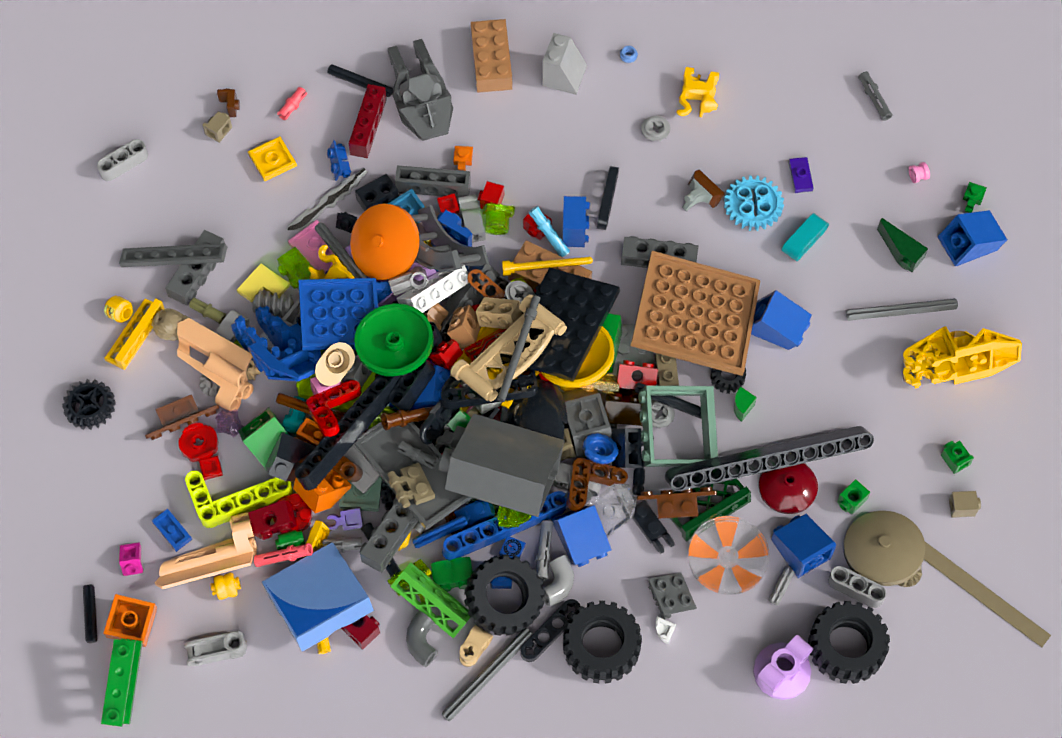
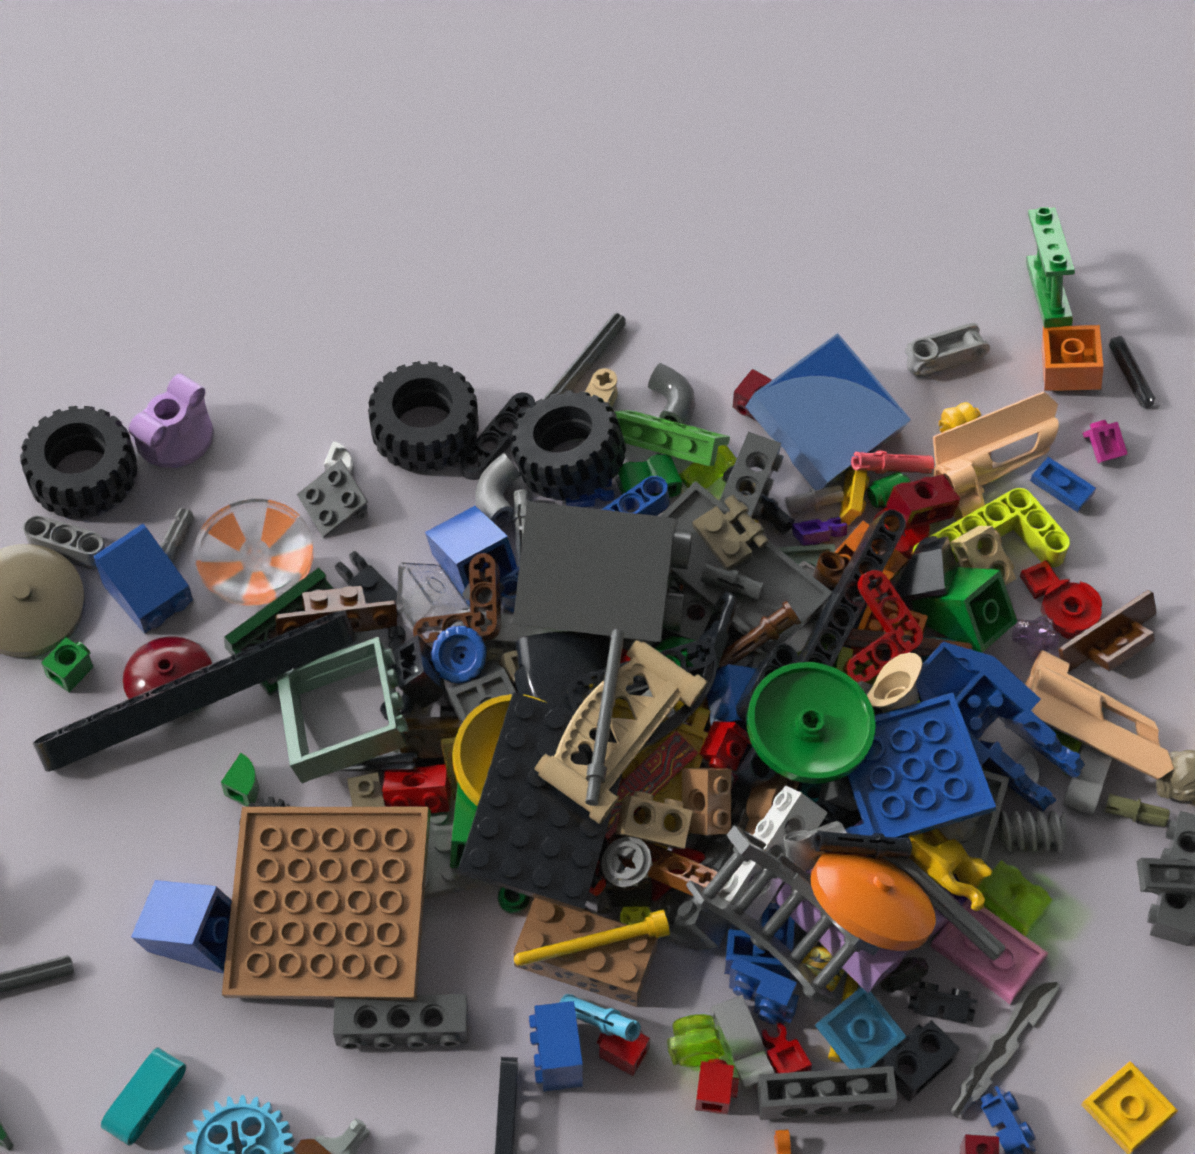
camera: 170 degrees right, 5 degrees down
(245, 472) = (990, 555): none -> tan brick
(262, 279) = (1068, 880): light yellow tile -> none
(374, 271) = (874, 845): none -> black pin

